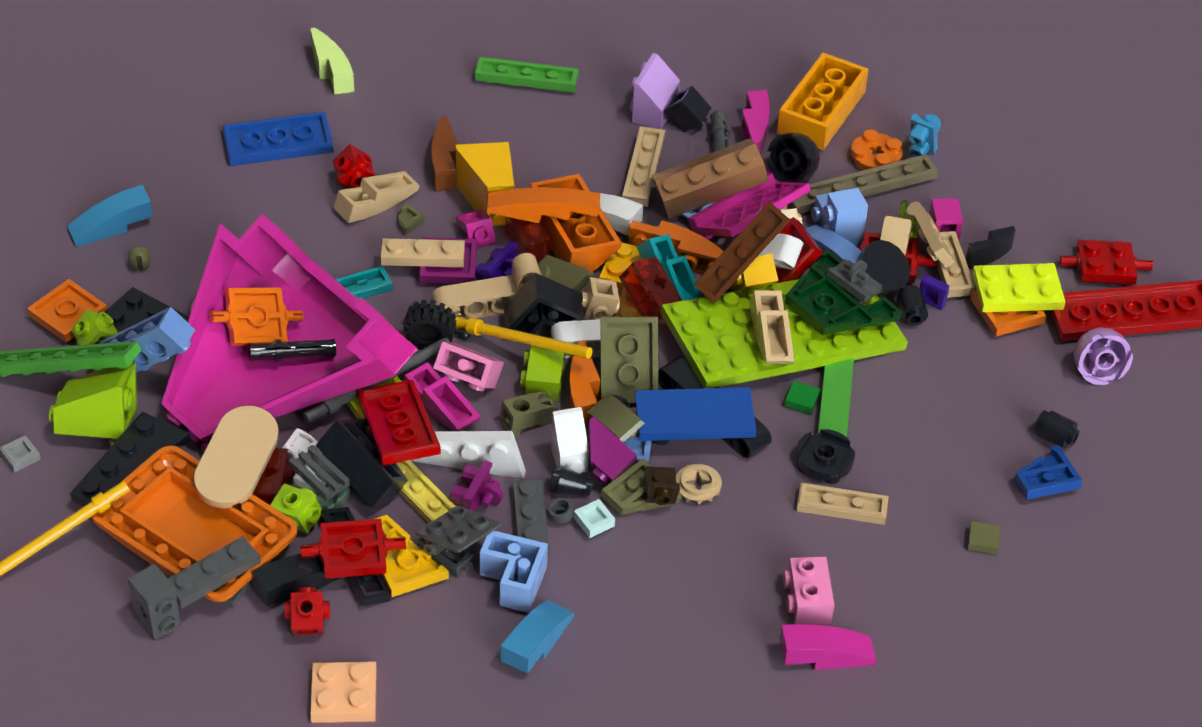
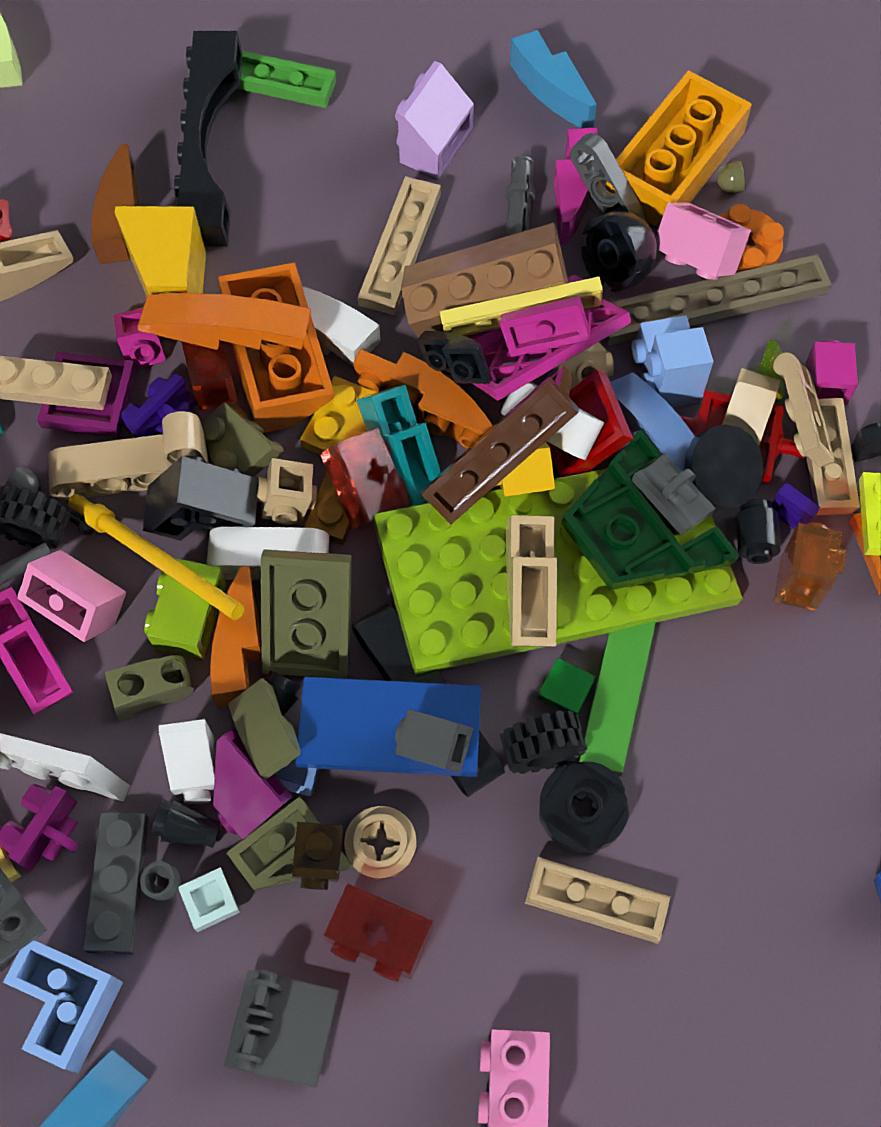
camera: 10 degrees right, 20 degrees up
(409, 219) = (50, 311): olive tile -> none
(498, 74) = (214, 75): none -> black arch
(654, 578) = (281, 1028): none -> dark grey hinge
(688, 109) = (479, 152): black brick -> none
(699, 216) = (455, 355): none -> black slope
(707, 524) = (362, 912): none -> clear red brick
(728, 406) = (433, 740): none -> dark grey brick
(729, 66) = (552, 79): none -> dark azure slope
(737, 187) = (486, 315): none -> light yellow tile
(755, 193) = (546, 326): none -> dark pink panel
(781, 110) = (589, 157): none -> dark grey beam
(794, 417) = (543, 742): none -> black tyre
(847, 146) = (701, 240): none -> bright pink brick
(861, 116) = (731, 177): none -> olive hinge
(923, 134) = (819, 220): dark azure hips -> none
(947, 317) = (809, 566): none -> clear orange brick
(984, 538) = (810, 992): olive tile -> none

